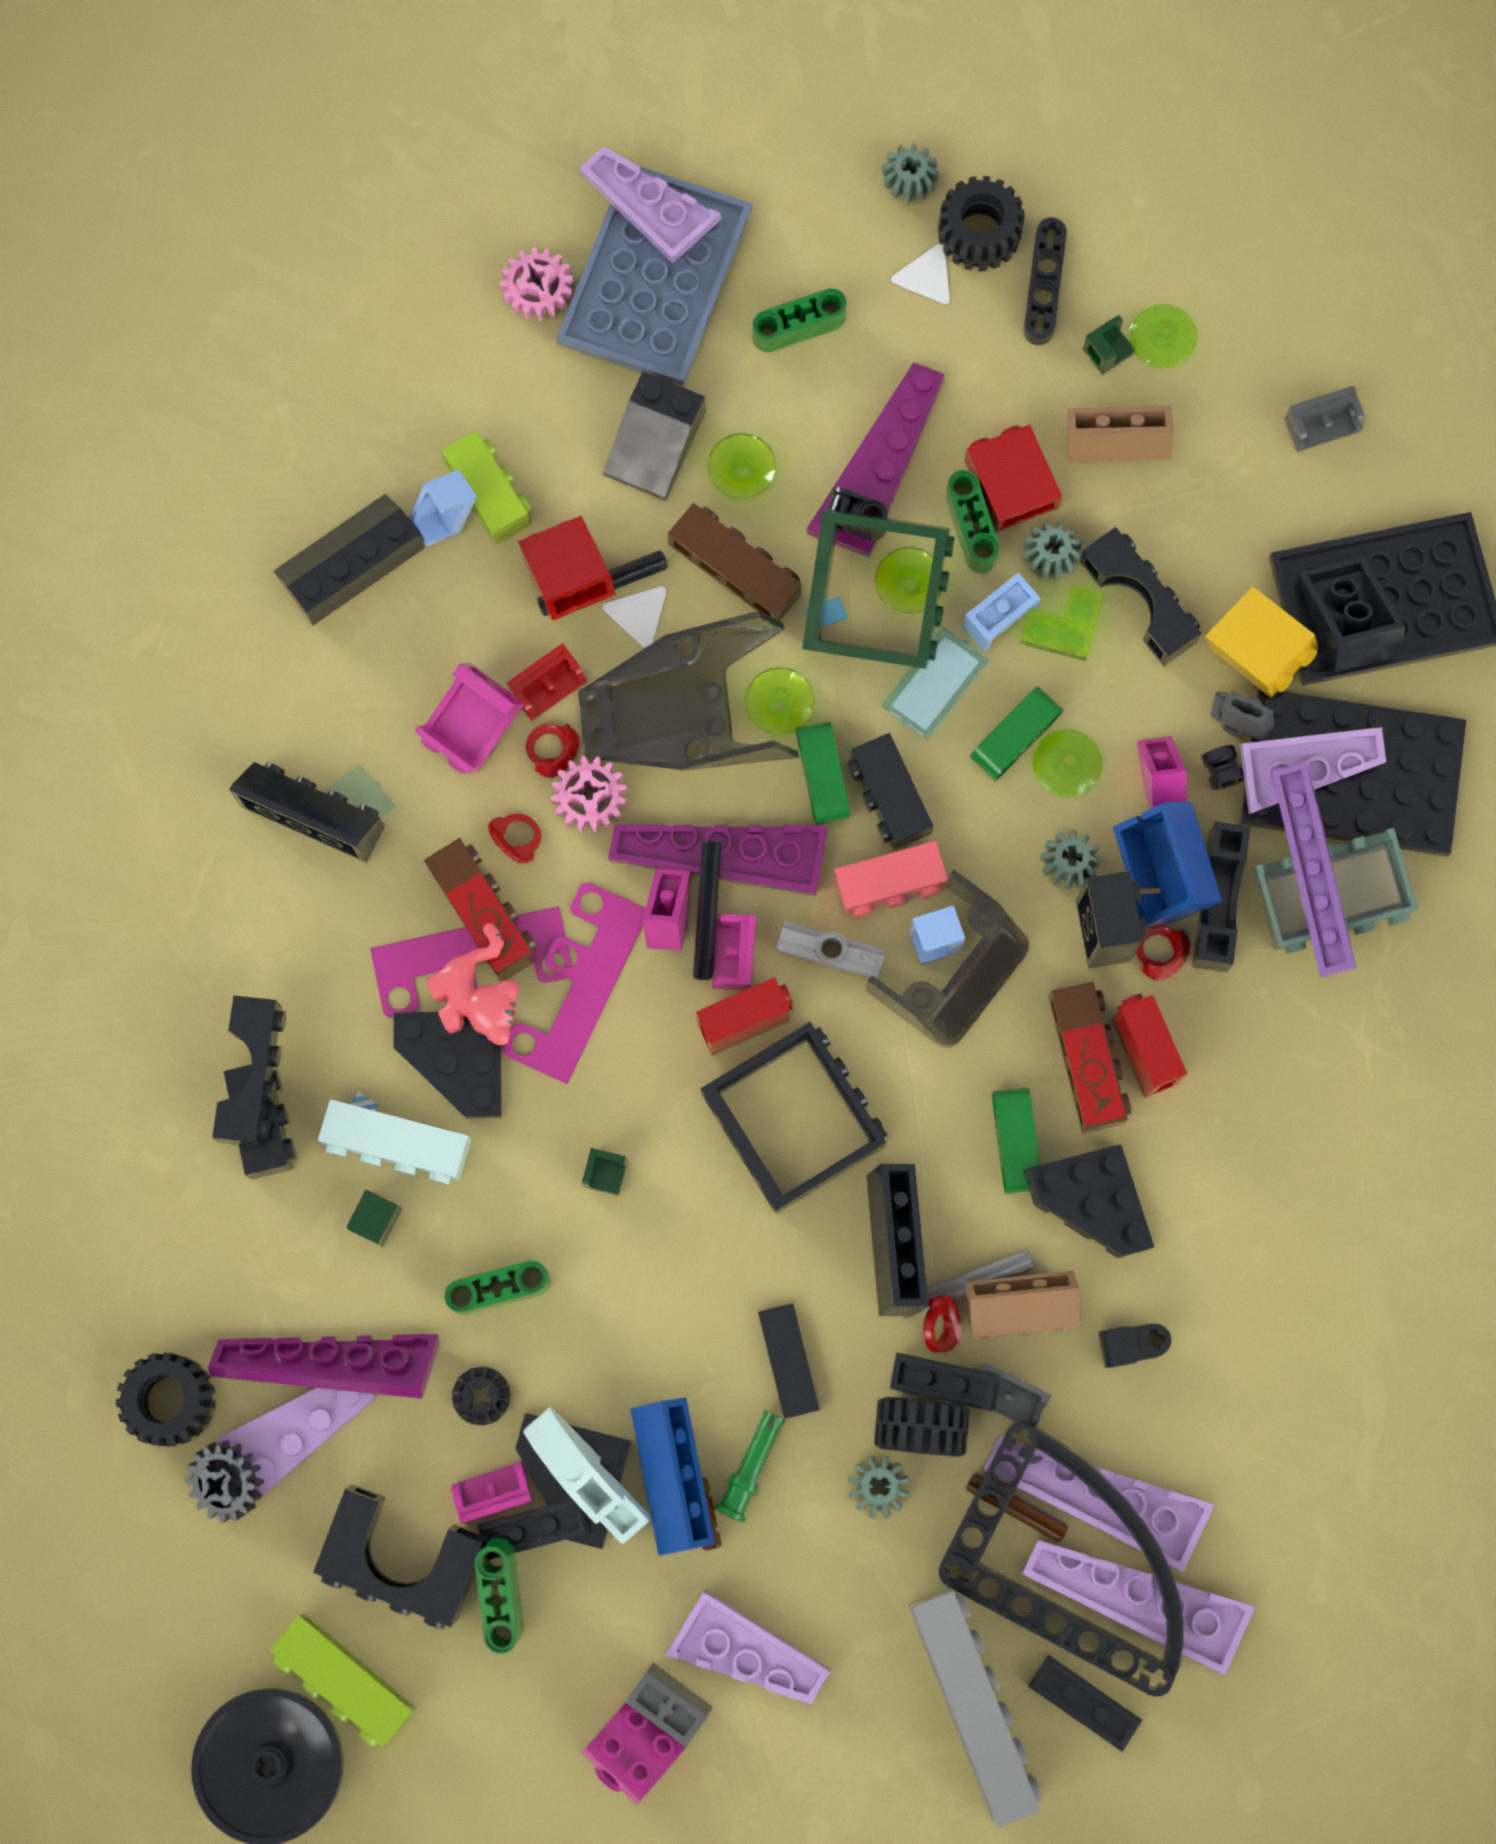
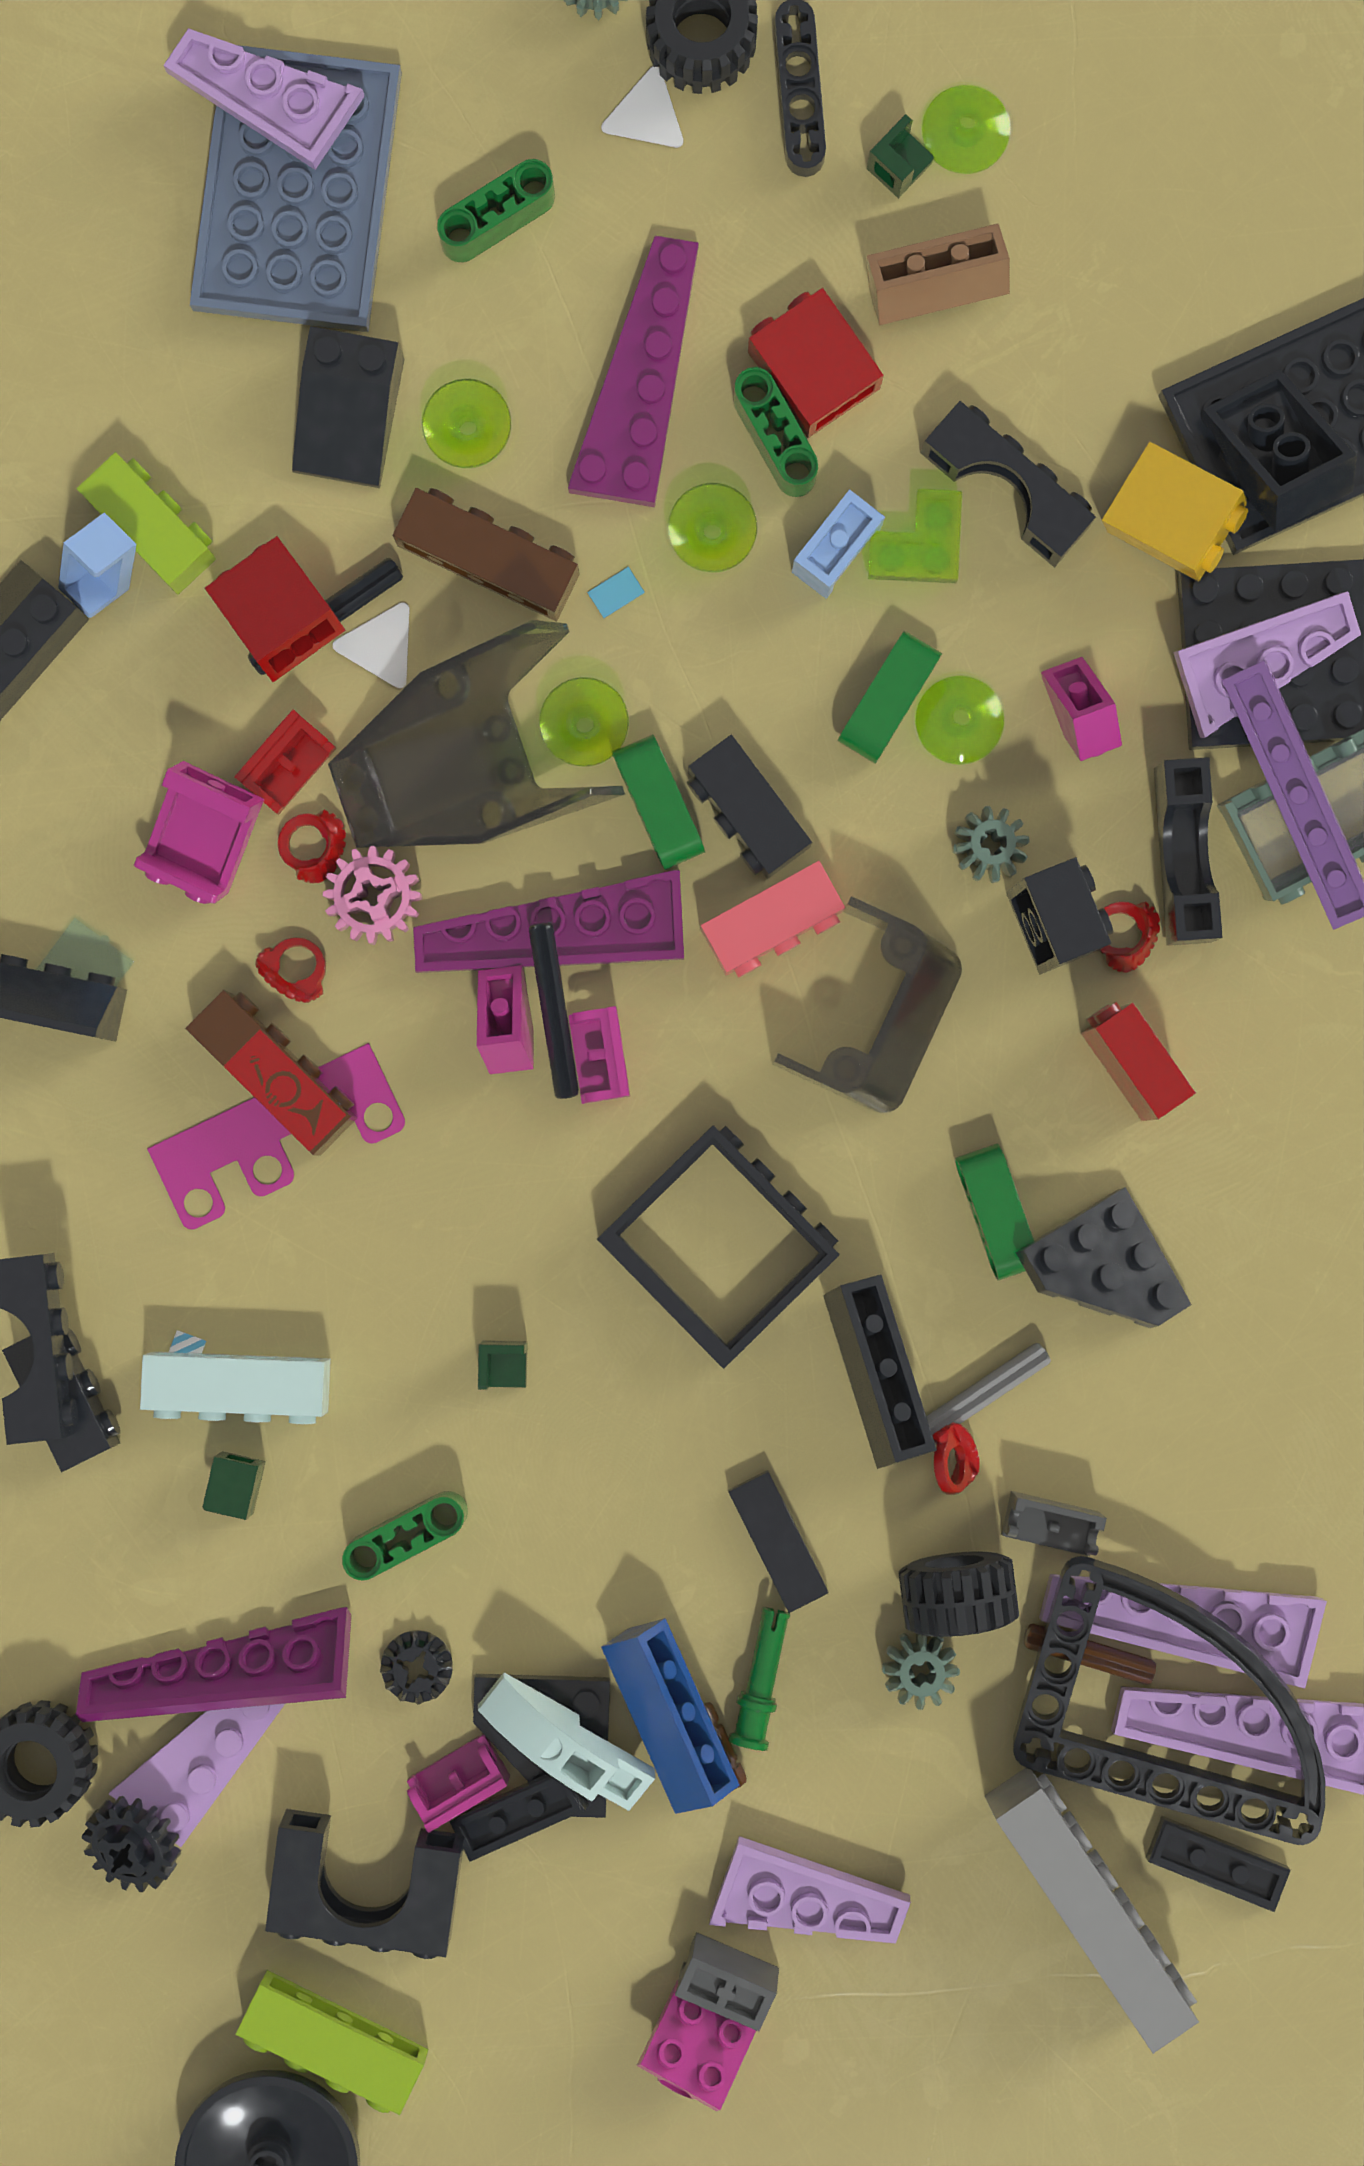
camera: 15 degrees left, 10 degrees up
(458, 1065) = (286, 1260): black plate -> none
(487, 1583) = (514, 1922): green beam -> none
(489, 1007) = (310, 1199): coral animal -> none
(527, 294) = (159, 223): bright pink gear -> none
(593, 981) = (433, 1126): dark pink piece -> none
(744, 1015) = (630, 1135): red brick -> none
(808, 942) = (749, 1026): light grey piece -> none
(821, 577) = (751, 527): dark green window -> none
(848, 501) = (622, 456): black piece -> none
(930, 693) = (773, 653): clear light blue piece -> none
(937, 935) = (846, 980): light blue panel -> none
(945, 1381) = (974, 1528): black tile -> none
(1023, 1304) = (1048, 1412): medium nougat brick -> none
(1060, 540) = (891, 432): sand green gear -> none
(1088, 1057) = (1065, 1090): brick -> none
(1127, 1345) = (1182, 1431): black piece -> none
(1168, 853) = (1115, 811): blue piece -> none
(1222, 767) = (1160, 693): black wheel -> none
(1243, 715) = (1168, 612): dark grey piece -> none
(1325, 418) = (1194, 196): dark grey hinge -> none

